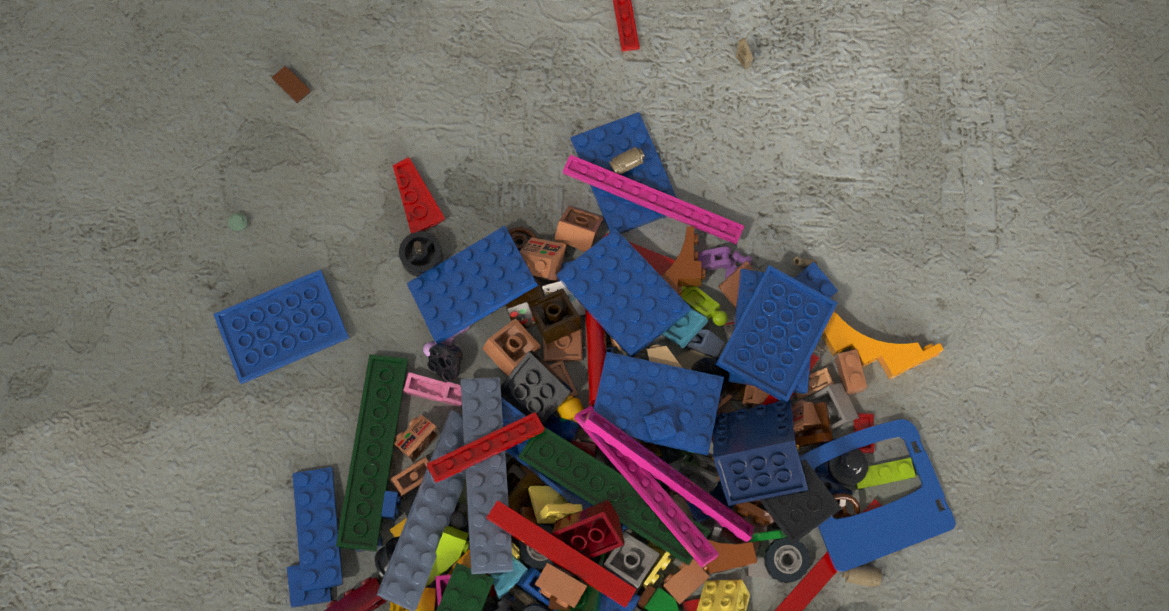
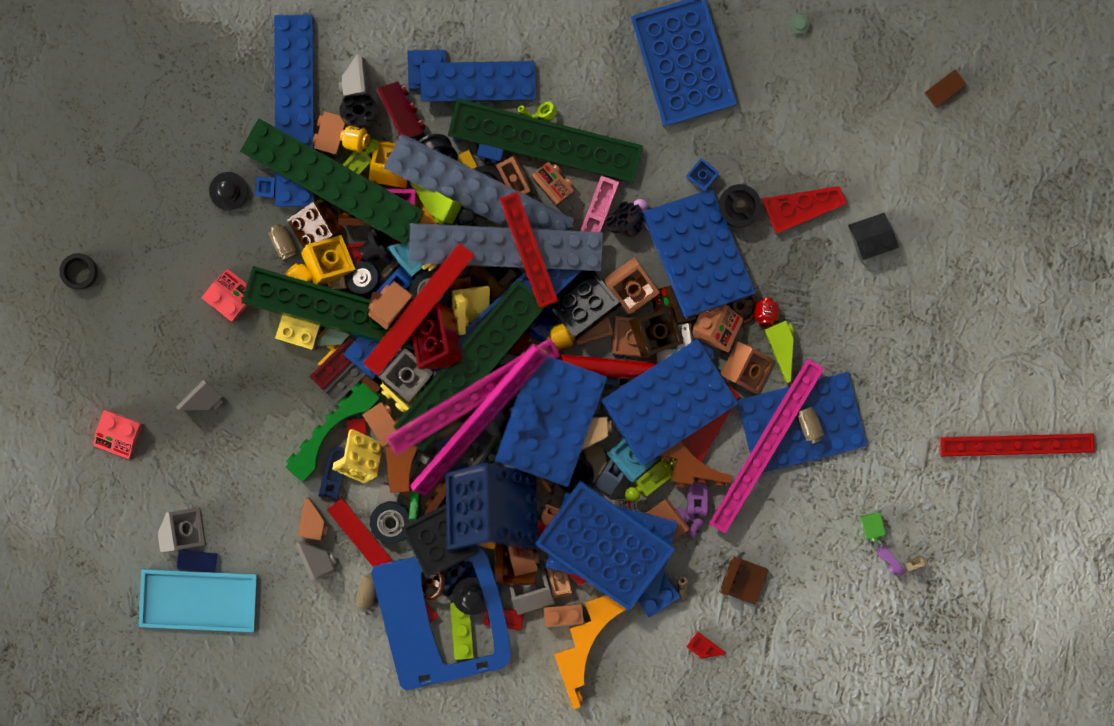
camera: 95 degrees right, 15 degrees up
(343, 455) = (546, 111): none -> lime plate
(393, 294) = (702, 174): none -> blue piece
(438, 129) = (873, 236): none -> black slope
(522, 217) = (766, 312): none -> red head
(552, 199) = (781, 343): none -> lime slope
(714, 97) = (873, 526): none -> bright green brick
(749, 72) = (895, 567): none -> medium lavender plate
(785, 207) = (743, 580): none -> reddish brown bracket
(857, 237) = (704, 647): none -> red tile

